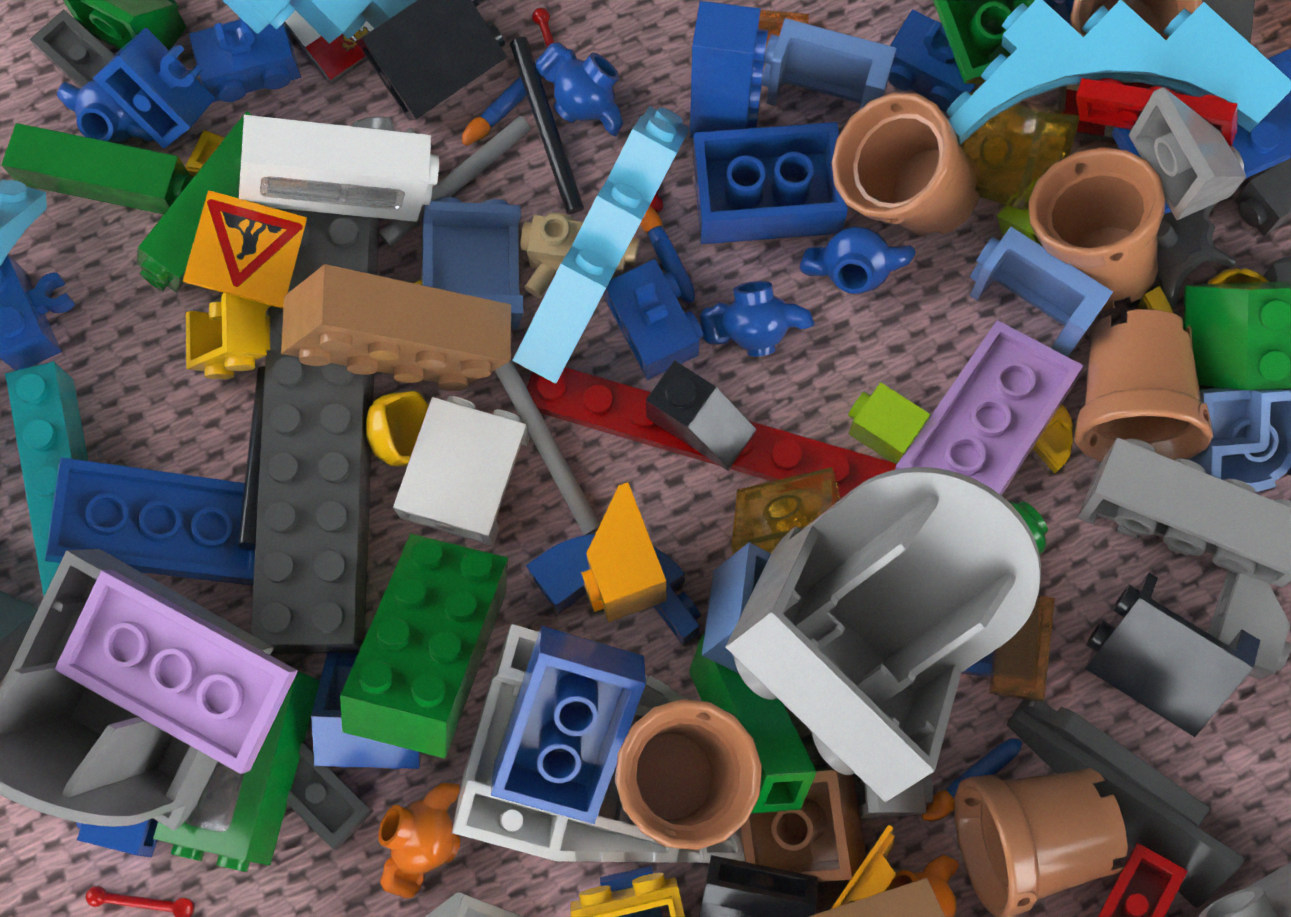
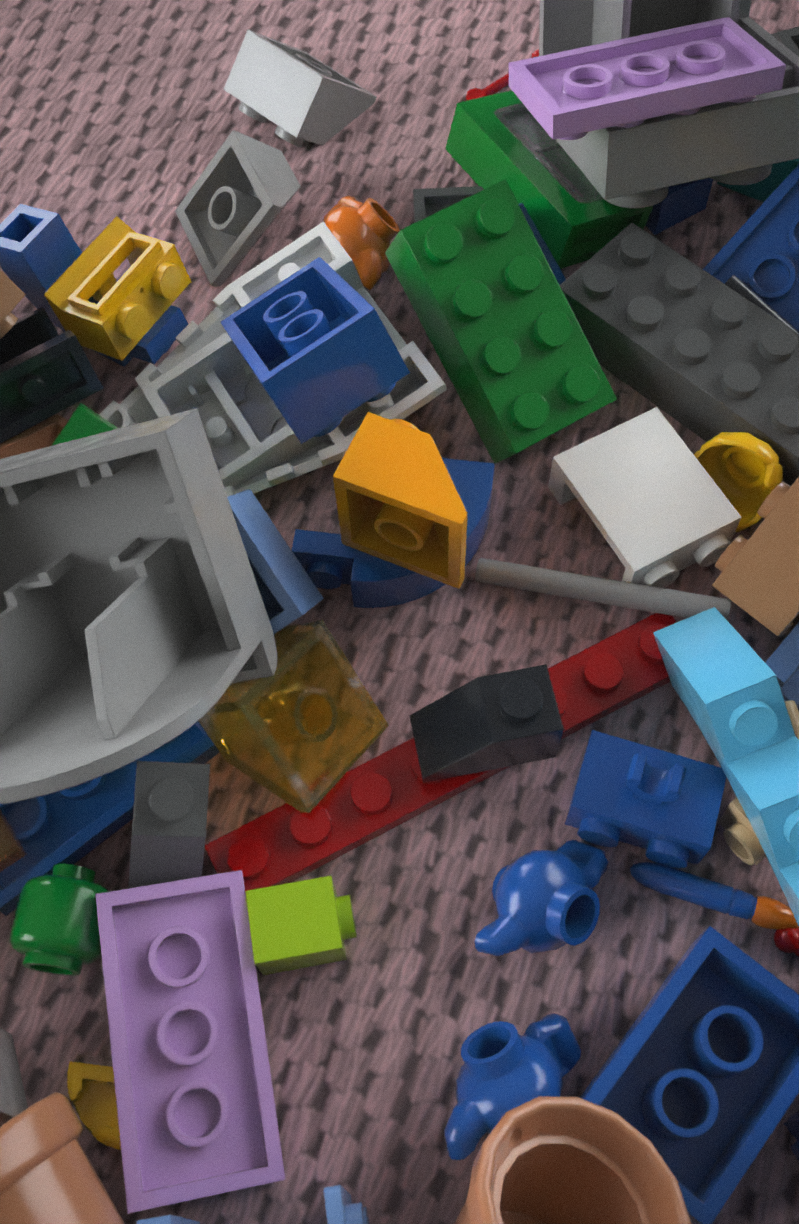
camera: 135 degrees right, 10 degrees down
(688, 774) = (163, 354): nougat piece -> none

